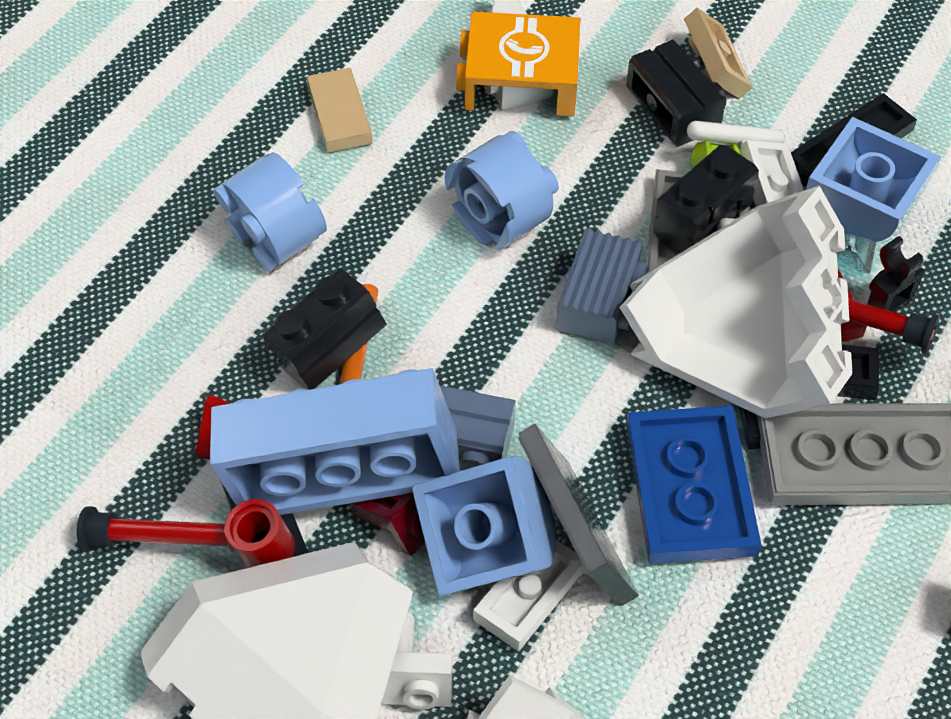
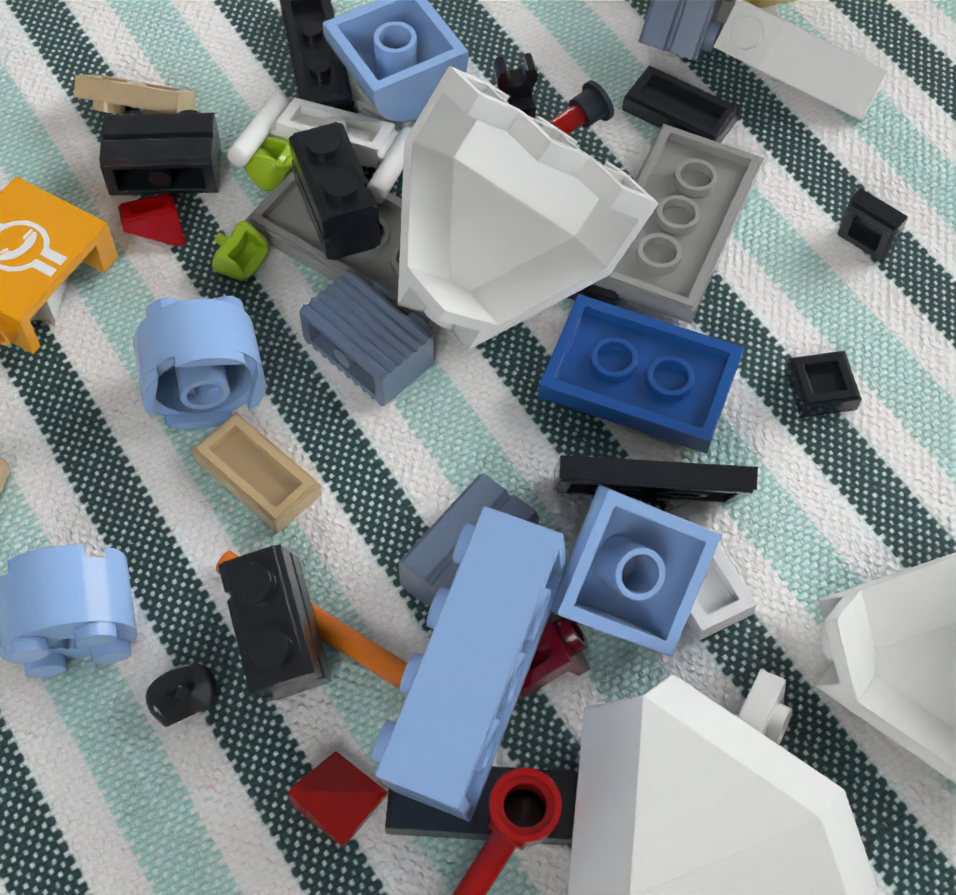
camera: 65 degrees left, 5 degrees up
(253, 308) = (181, 693): none -> black piece
(450, 277) = (257, 472): none -> tan tile
(620, 119) = (153, 219): none -> red slope
(626, 179) = (241, 252): none -> lime piece
(777, 629) = (823, 384): none -> black tile

